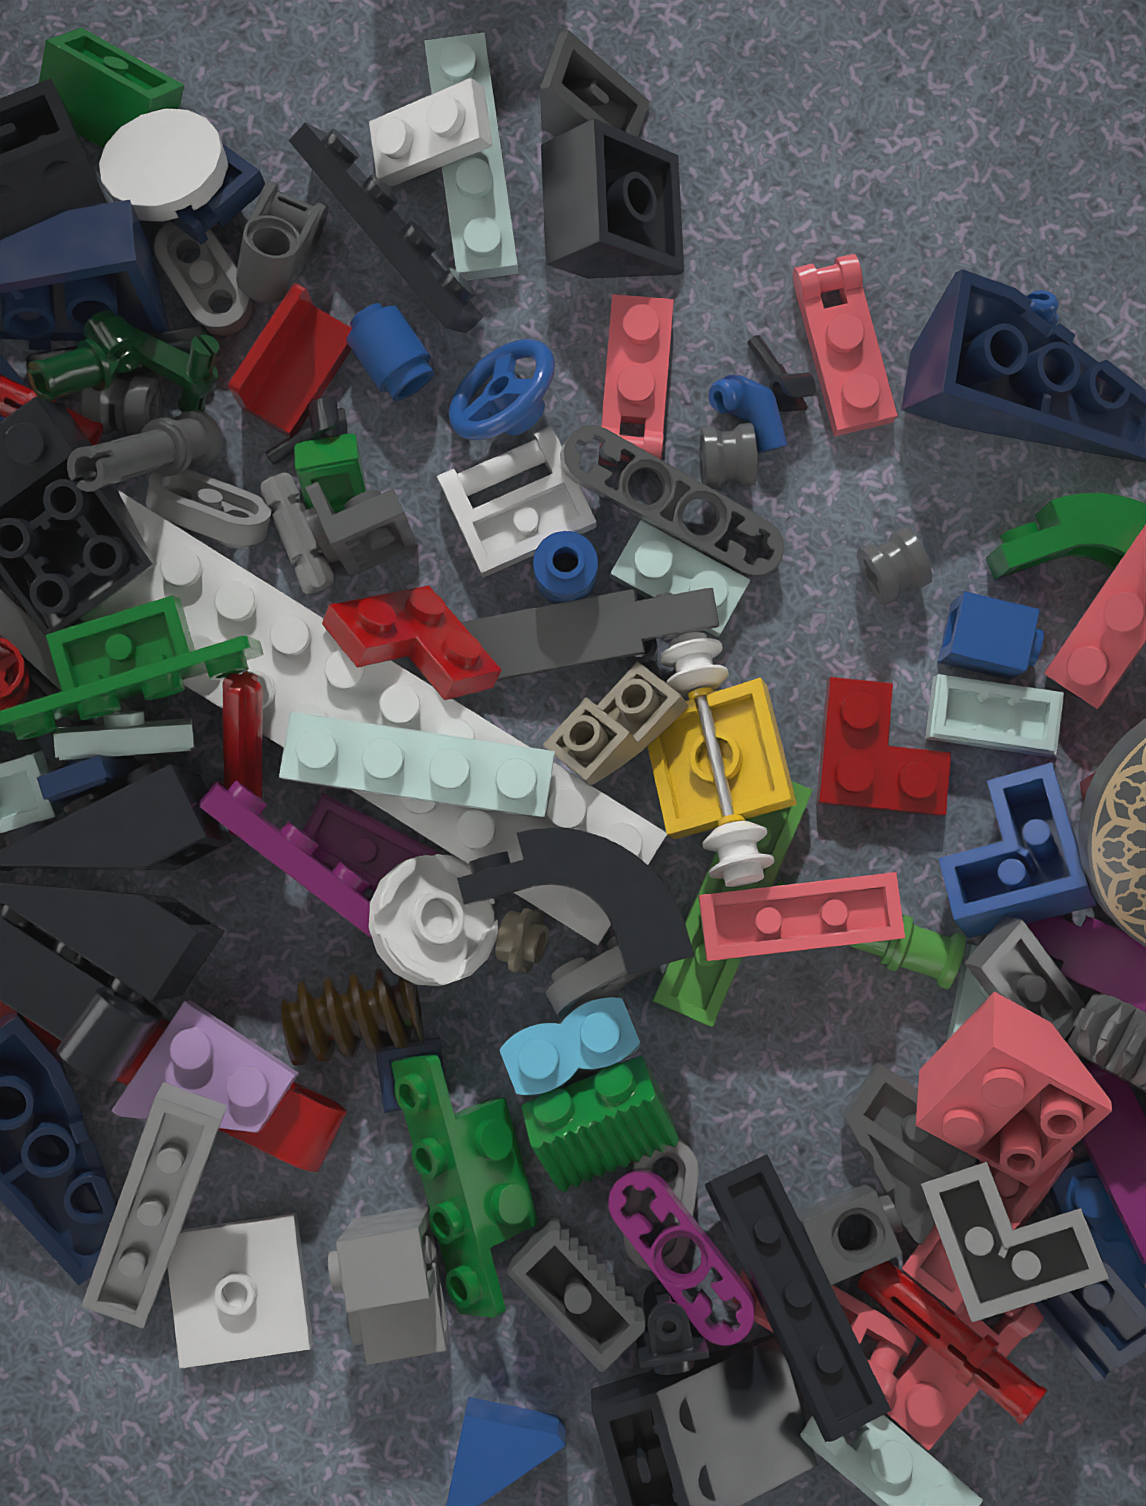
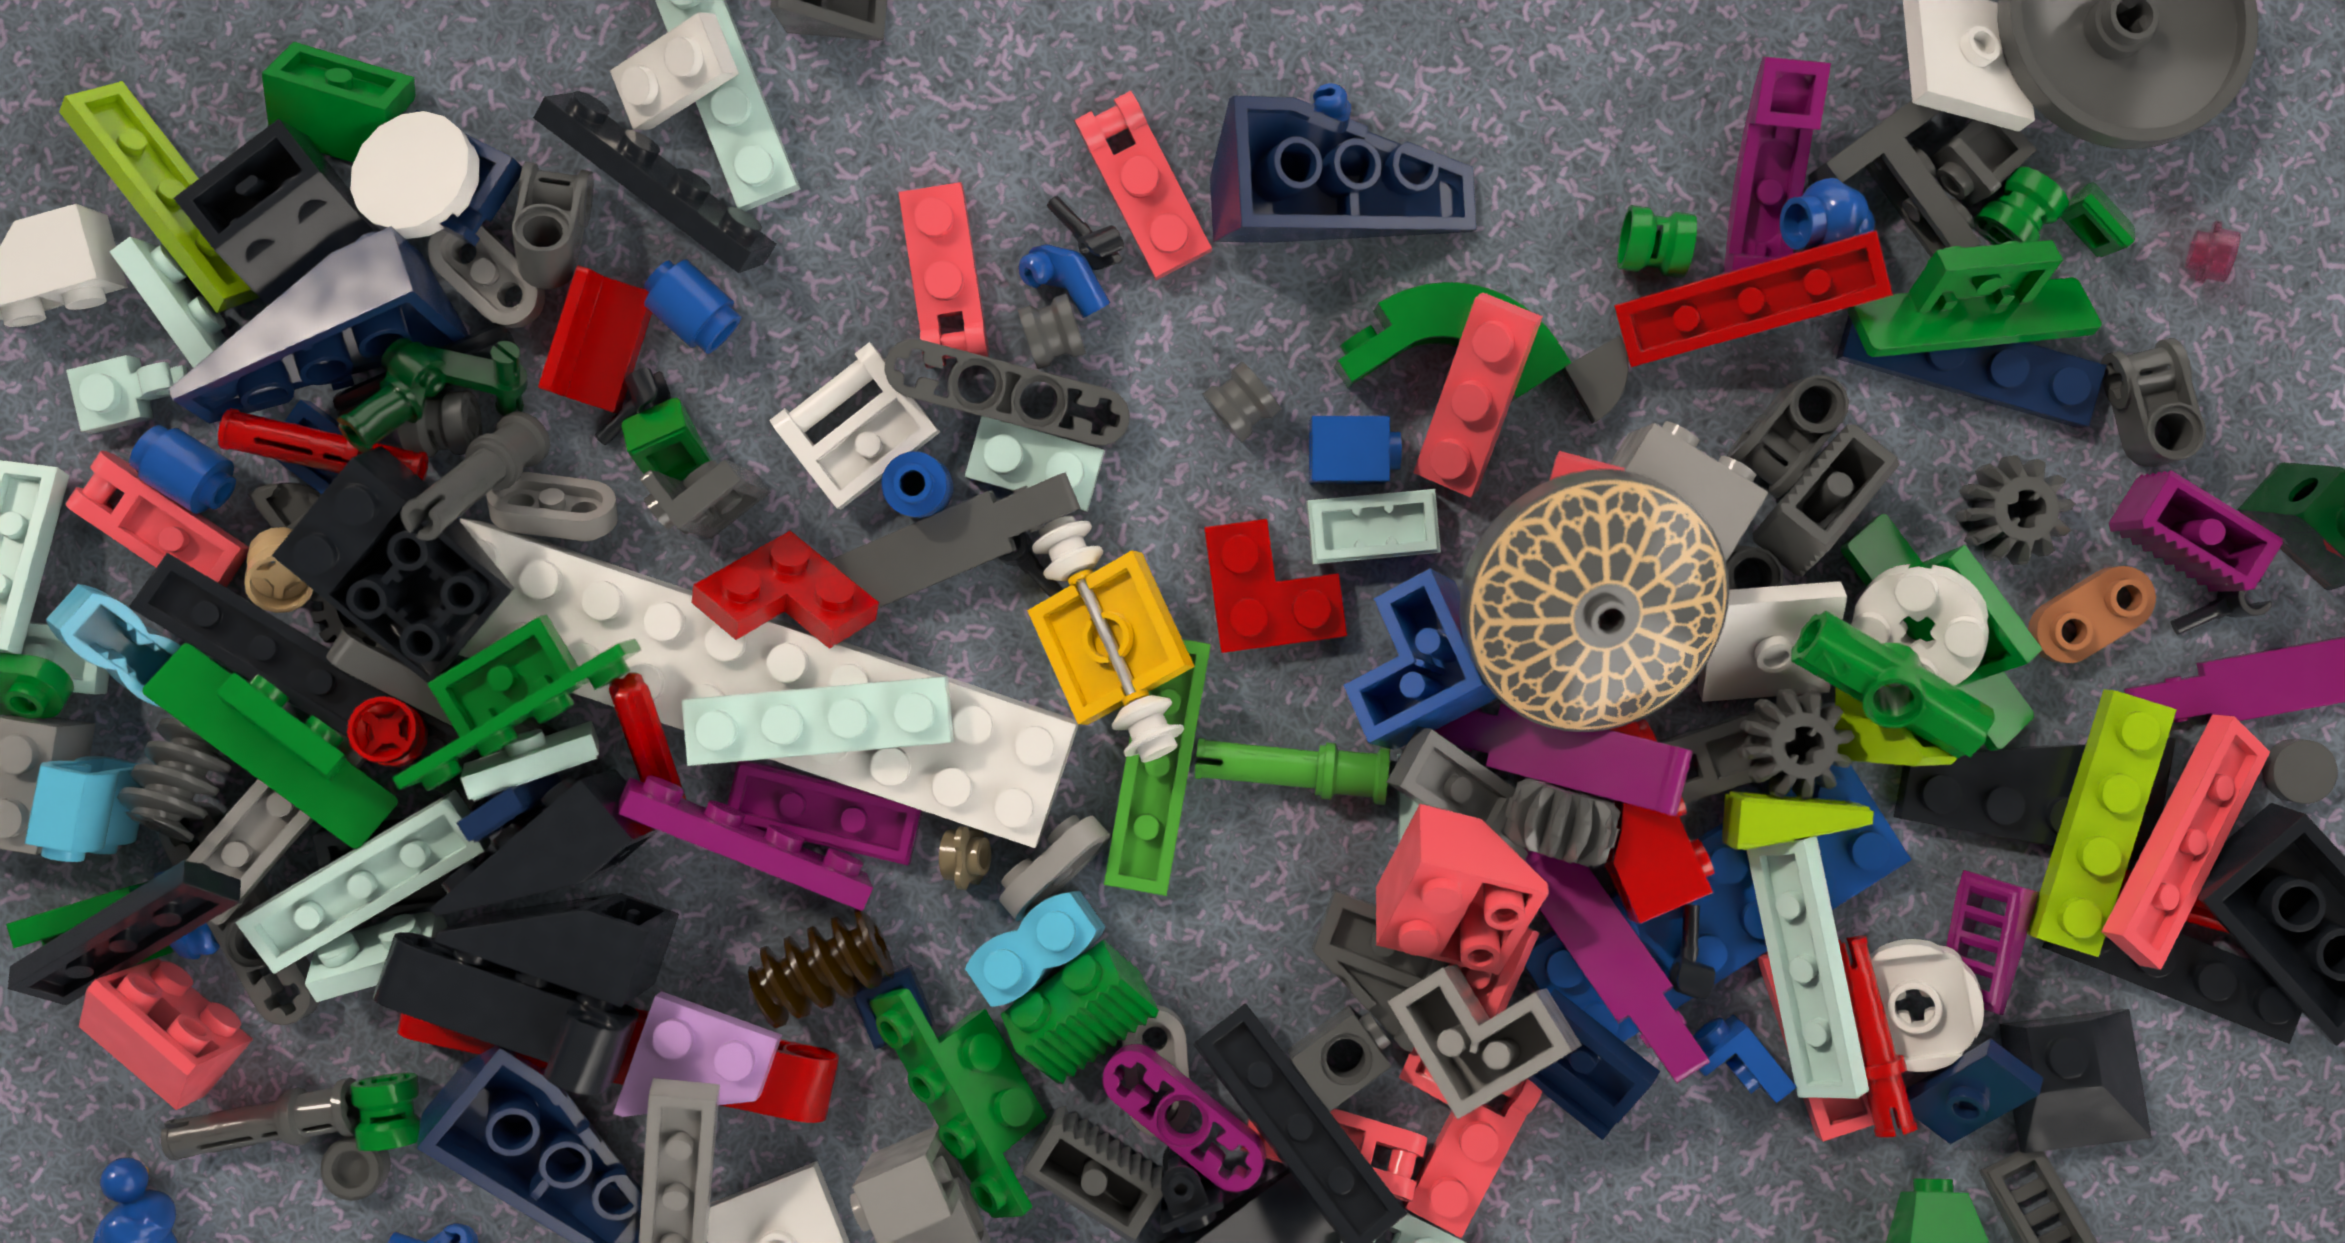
camera: 15 degrees left, 5 degrees up
(301, 547) = (623, 477): light grey axle -> none
(425, 926) = (872, 860): white tile -> none
(507, 401) = (819, 328): blue piece -> none
(608, 735) = (997, 642): dark tan slope -> none
(611, 204) = (875, 100): black slope -> none
(618, 881) = (1031, 786): black arch -> none
(801, 916) = (1223, 773): coral plate -> none
(953, 1340) = (1475, 1143): red pin -> none

